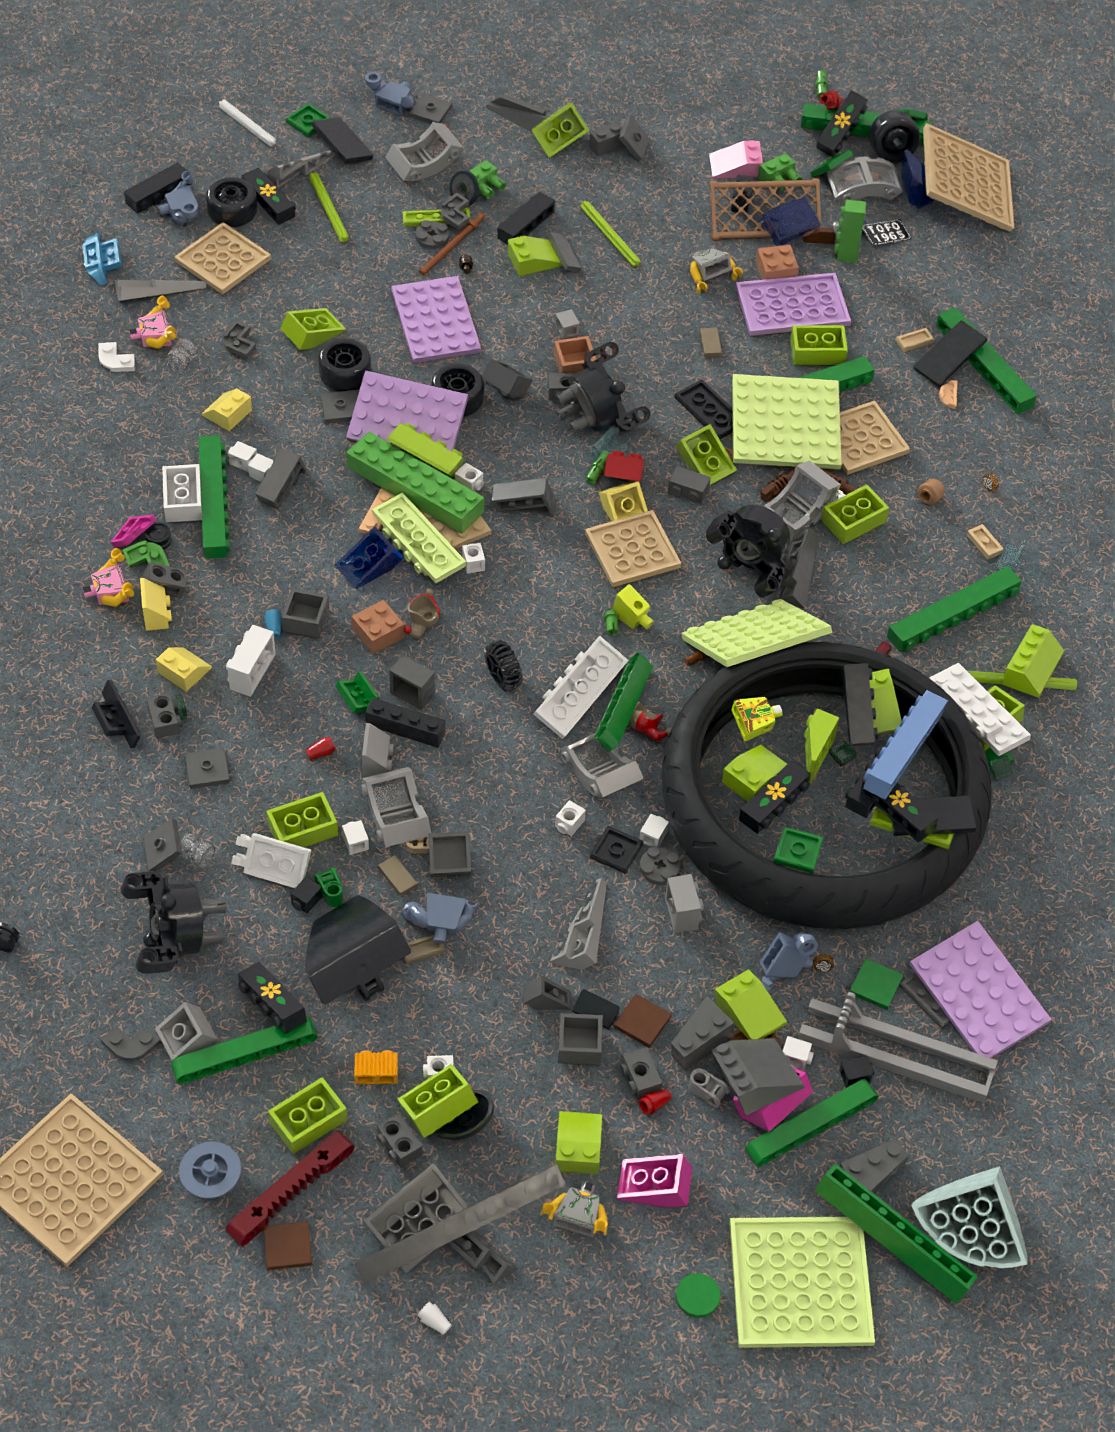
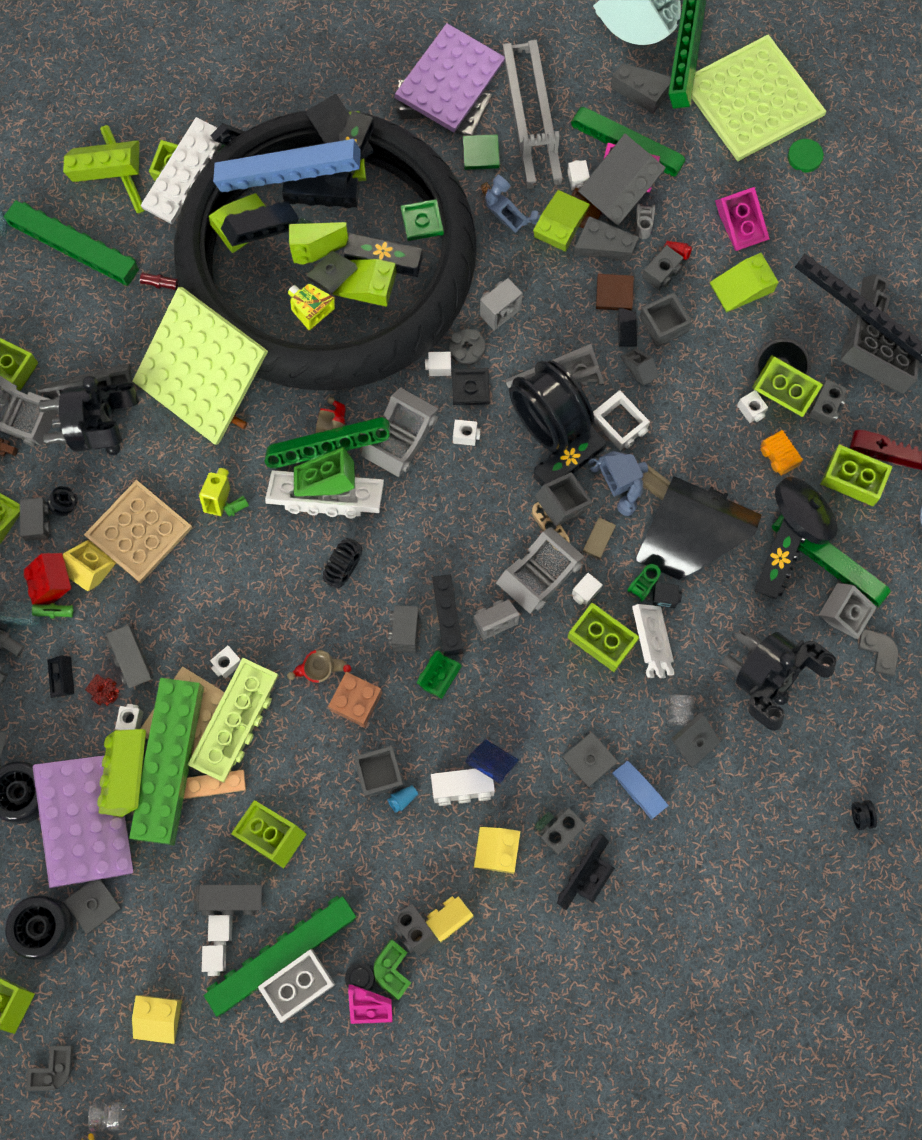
camera: 115 degrees left, 20 degrees up
(109, 583) = (446, 983): torso -> none
(153, 786) = (640, 790): none -> medium blue slope
(252, 678) = (492, 761): none -> clear blue tile
(300, 1040) = (806, 510): none -> black dish
(310, 527) = (269, 834): none -> lime slope
(321, 748) = (514, 672): red cone -> none
(369, 558) = (279, 756): clear blue slope -> none
(488, 887) = (570, 460): none -> black brick
(505, 470) = (103, 690): none -> clear red brick
(505, 963) = (603, 425): none -> white window
(538, 455) = (60, 676): none -> black slope
(541, 873) = (551, 405): none -> black wheel
(578, 1211) = (796, 246): torso -> none
(593, 688) = (325, 475): none -> bright green slope
(692, 506) = (62, 501): none -> black wheel
(780, 747) = (331, 271): none -> dark grey plate
(856, 1070) = (569, 130): black brick -> none
(986, 732) = (225, 134): none -> black plate

